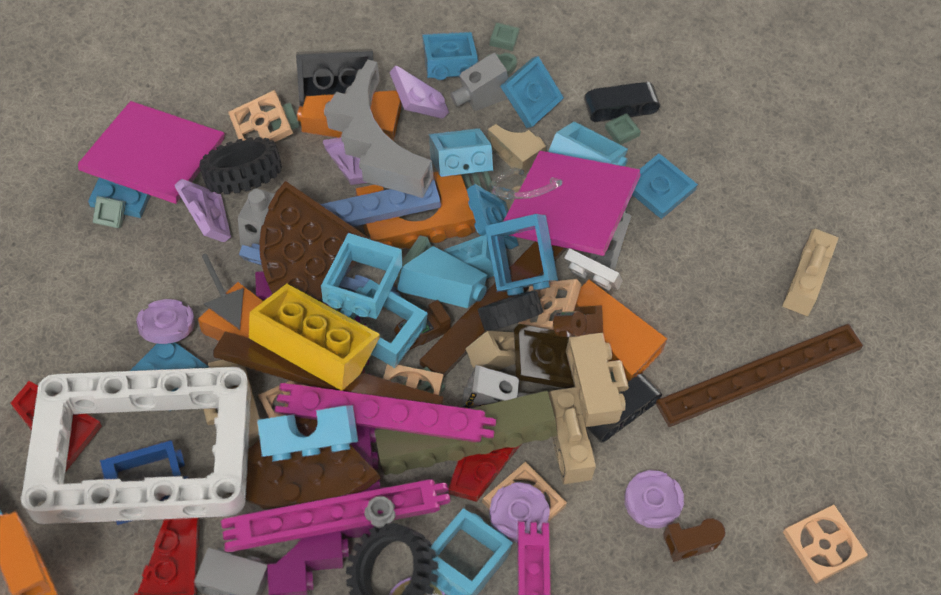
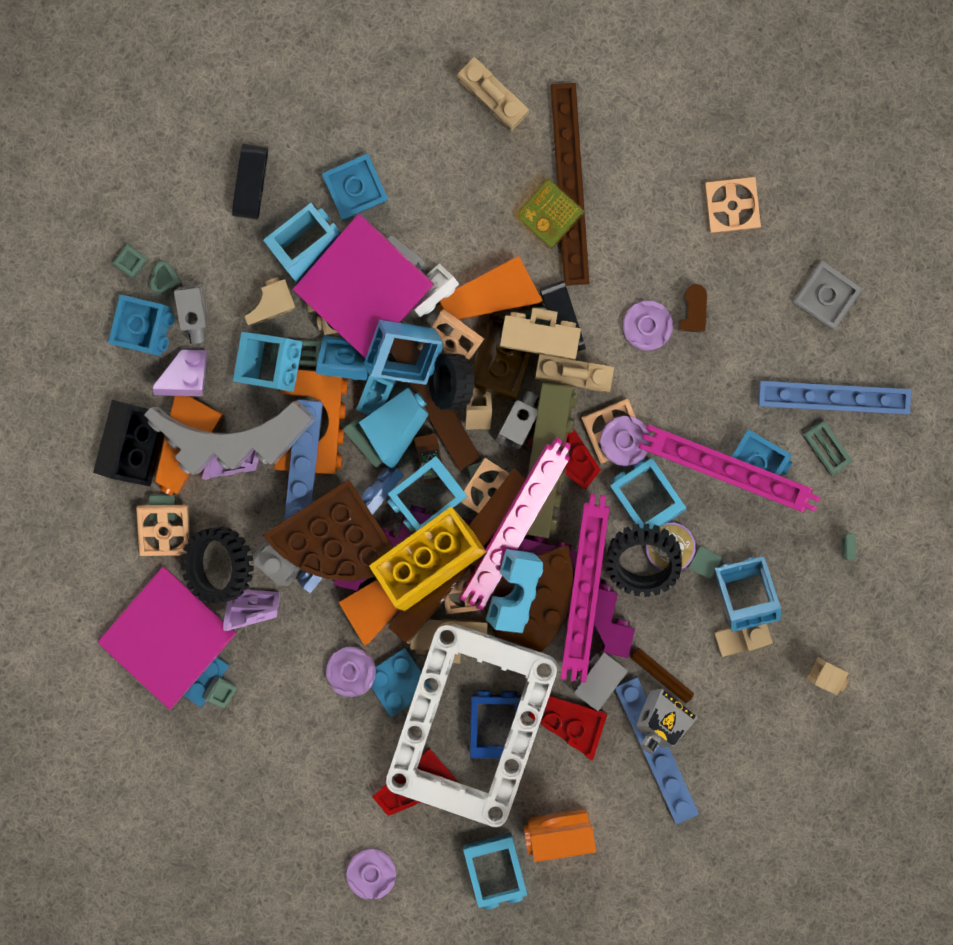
camera: 65 degrees left, 30 degrees up
(228, 305) = (360, 618): dark grey piece -> none
(368, 253) = (371, 484): medium azure window -> none
(383, 504) = (600, 549): light grey plate -> none
(511, 194) = (331, 338): clear piece -> none
(532, 92) = (215, 265): dark azure plate -> none
(582, 321) = (485, 328): reddish brown leg -> none
(622, 129) = (278, 192): sand green tile -> none
(723, 361) = (549, 213): none -> clear yellow tile

